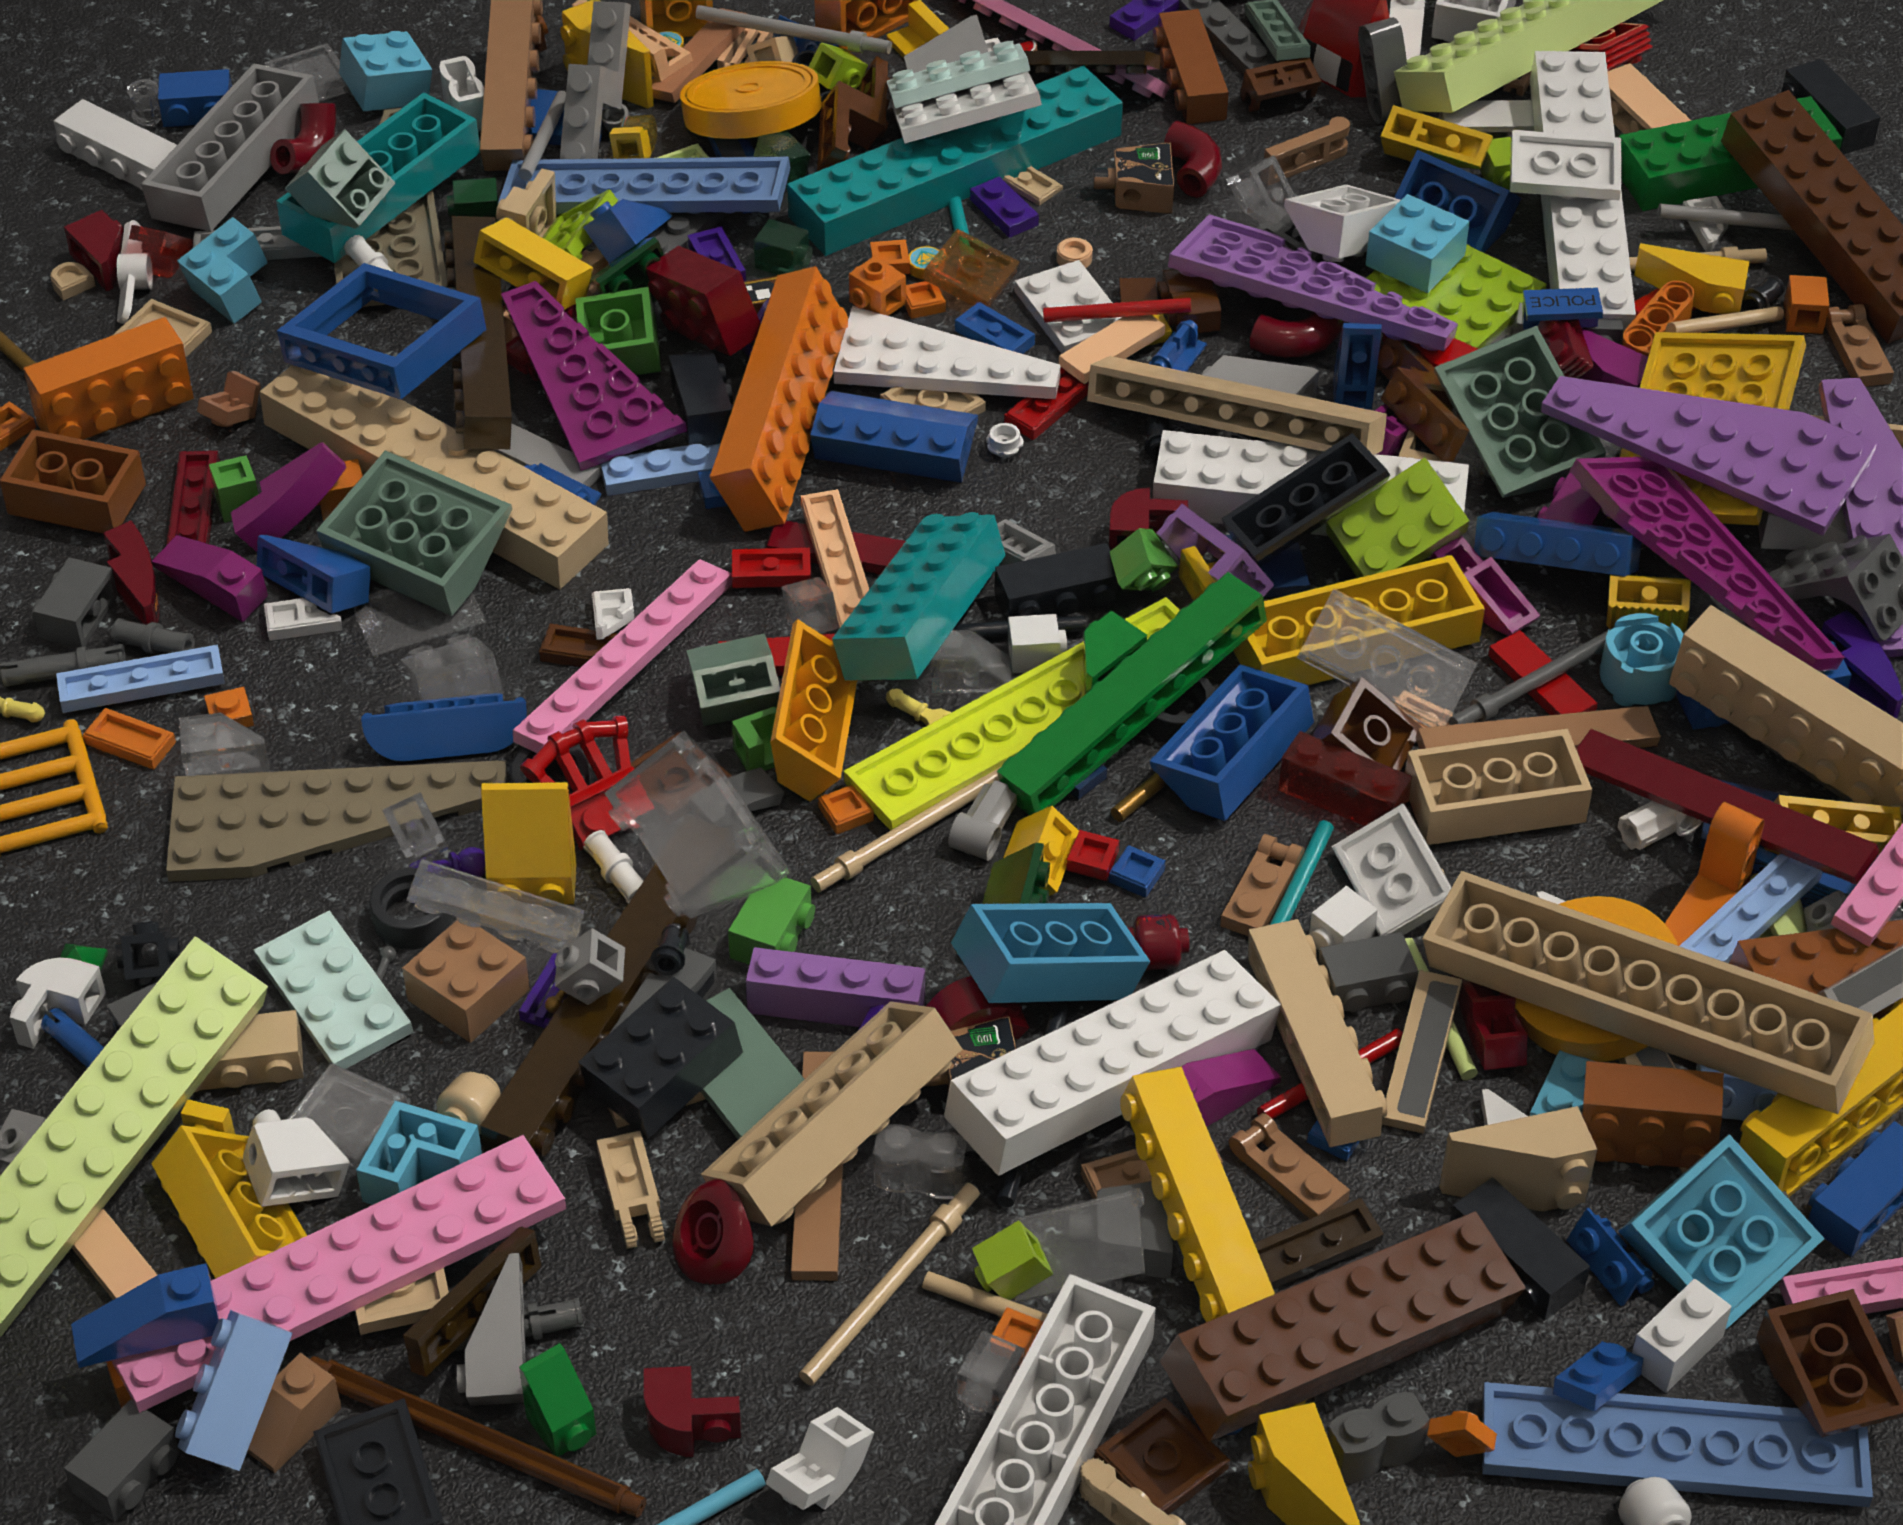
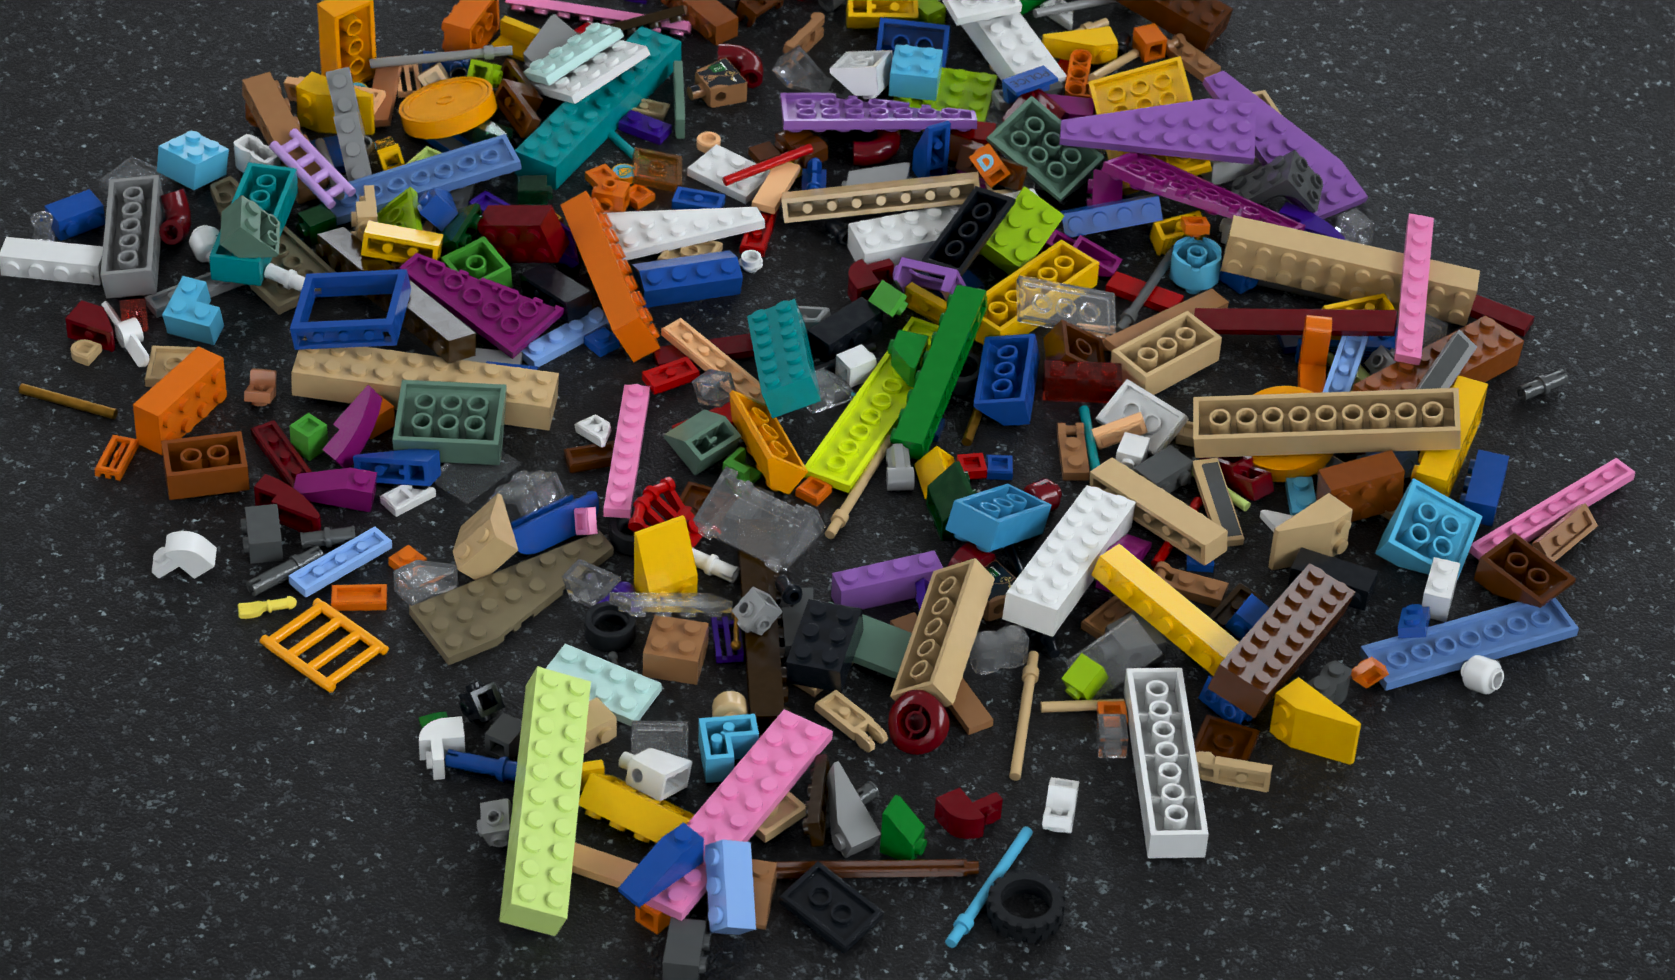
camera: 30 degrees left, 5 degrees down
(329, 723) = (485, 540): none -> tan slope
(485, 739) = (585, 521): none -> bright pink tile
(494, 142) = (312, 155): none -> lavender bar
(771, 919) = (822, 560): bright green brick -> none
(918, 710) = (824, 426): light yellow piece -> none
(1072, 182) = (679, 106): none -> sand green tile
(1324, 1256) = (1246, 616): none -> blue brick
(1327, 879) = (1113, 432): none -> light nougat tile
(1410, 409) = (989, 165): none -> orange brick
(1606, 1254) = (1389, 571): blue hinge -> none
(1653, 823) = (1256, 347): white piece -> none
(1664, 601) = (1195, 226): none -> orange plate

